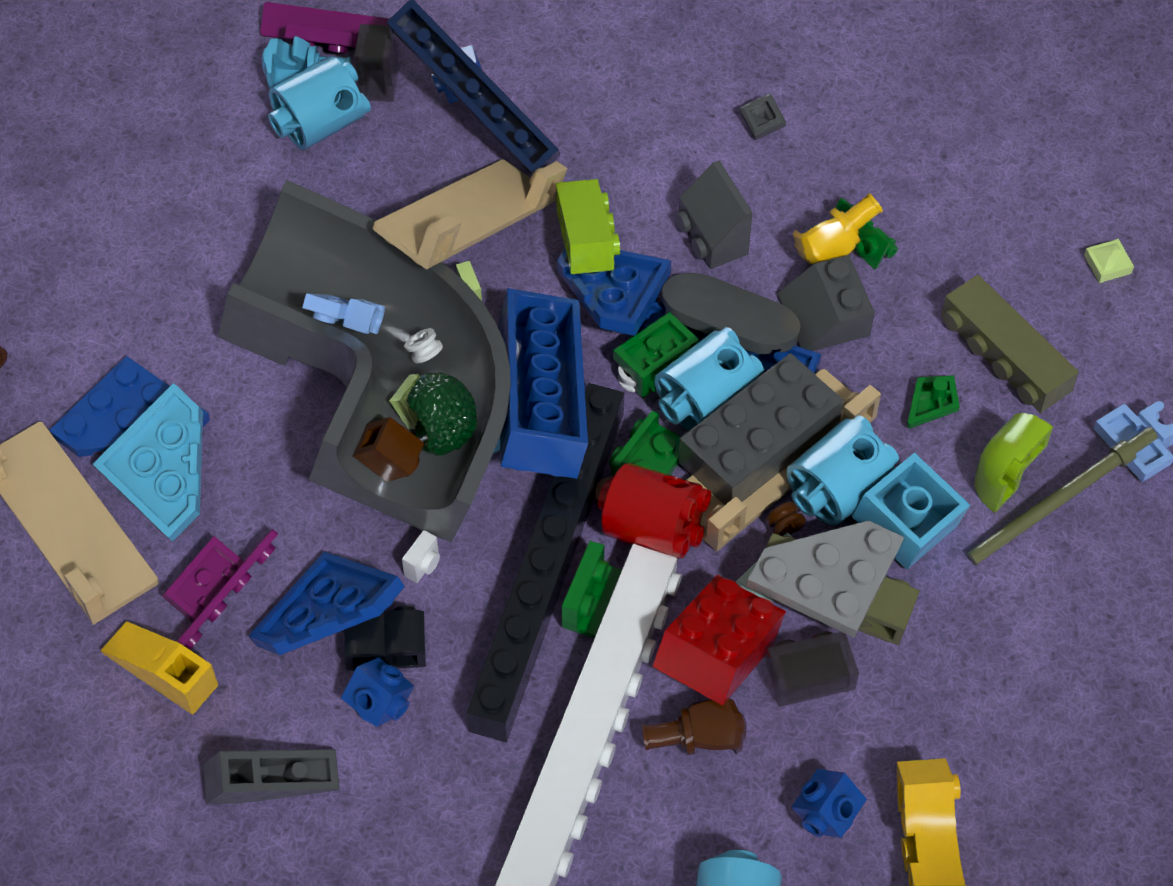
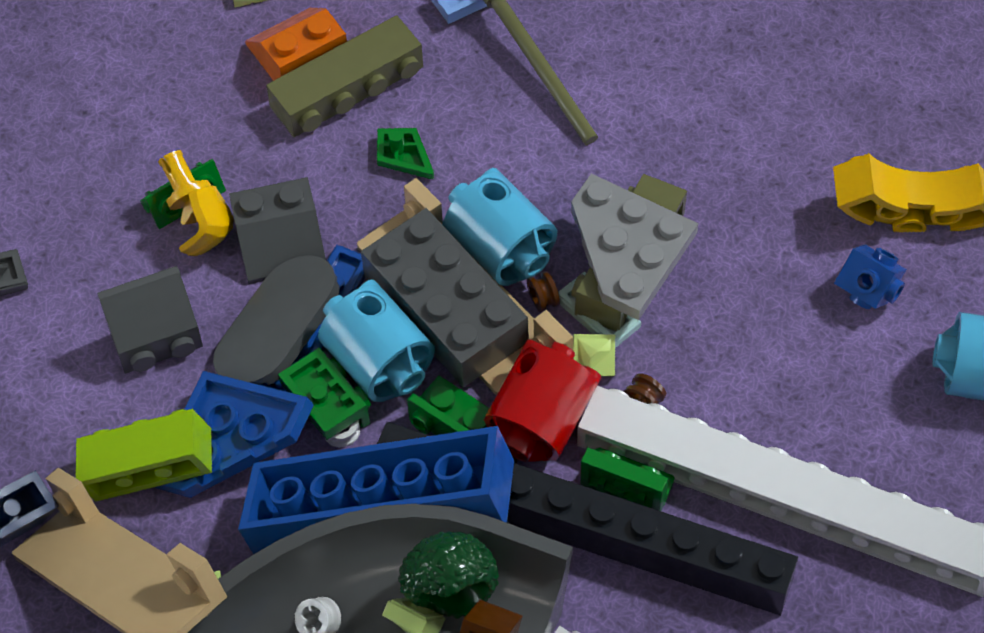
camera: 85 degrees left, 0 degrees up
(678, 604) = (646, 389): none -> reddish brown bush
(702, 726) = (788, 383): reddish brown piece -> none
(719, 639) = (701, 348): red brick -> none
(722, 560) = (596, 352): none -> yellowish green tile
(811, 668) = (718, 282): clear smoke brick -> none
(914, 505) = (548, 168): medium azure brick -> none
(1008, 456) = (493, 83): lime brick -> none
(1041, 299) = (296, 41): none -> orange slope

